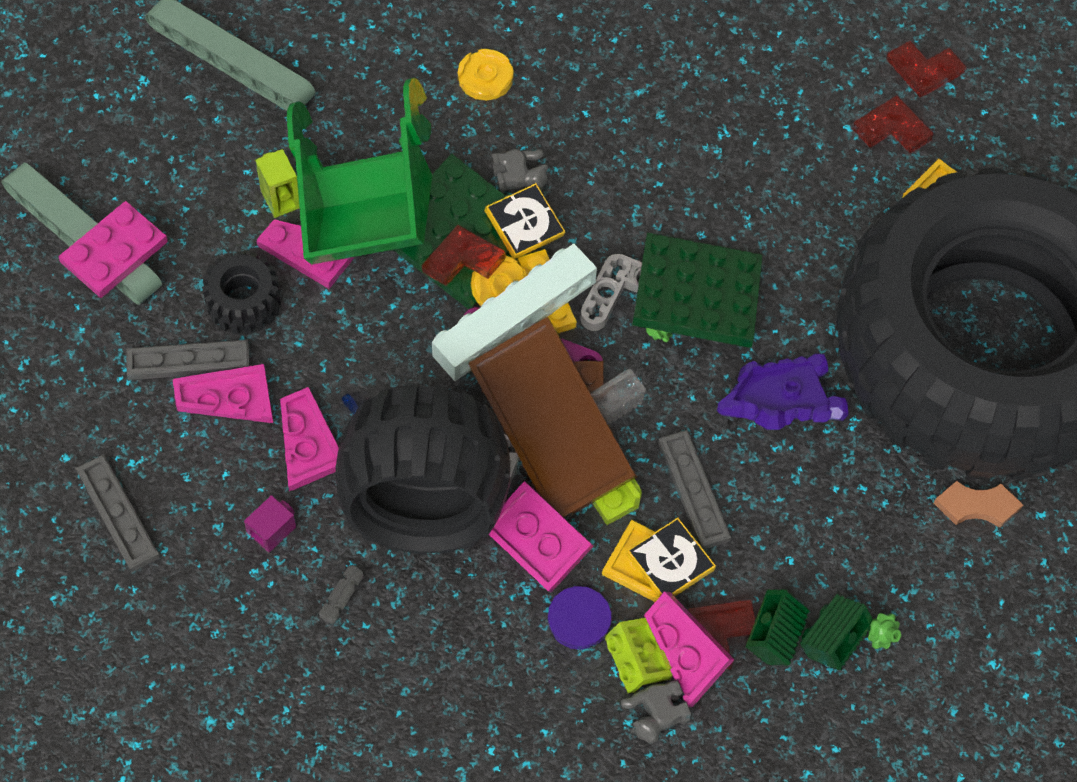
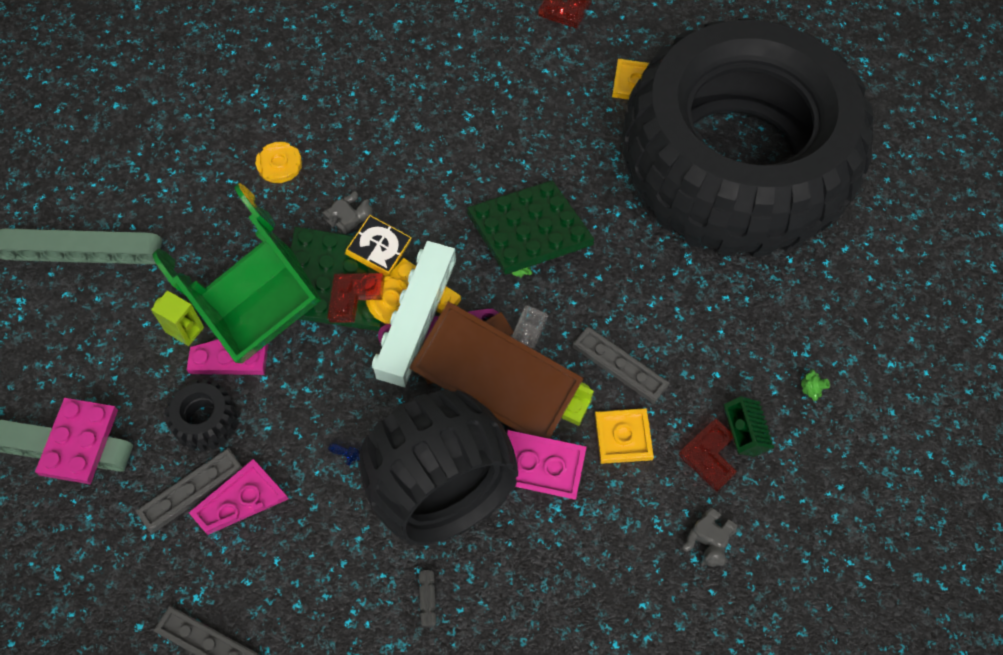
camera: 30 degrees left, 0 degrees up
(270, 523) = (338, 577): magenta brick -> none
(307, 440) = (324, 496): dark pink wing -> none
(579, 617) = (609, 505): dark purple tile -> none
(624, 279) = (472, 246): light grey beam -> none
(637, 654) = (668, 505): lime bracket -> none
(671, 559) = (644, 424): tile -> none
(690, 649) = (704, 479): dark pink wing -> none
(783, 392) = (635, 264): dark purple shield -> none
(836, 632) = (787, 405): dark green brick -> none
(896, 119) = (574, 49): clear red plate -> none
(964, 503) = (795, 269): nougat tile -> none

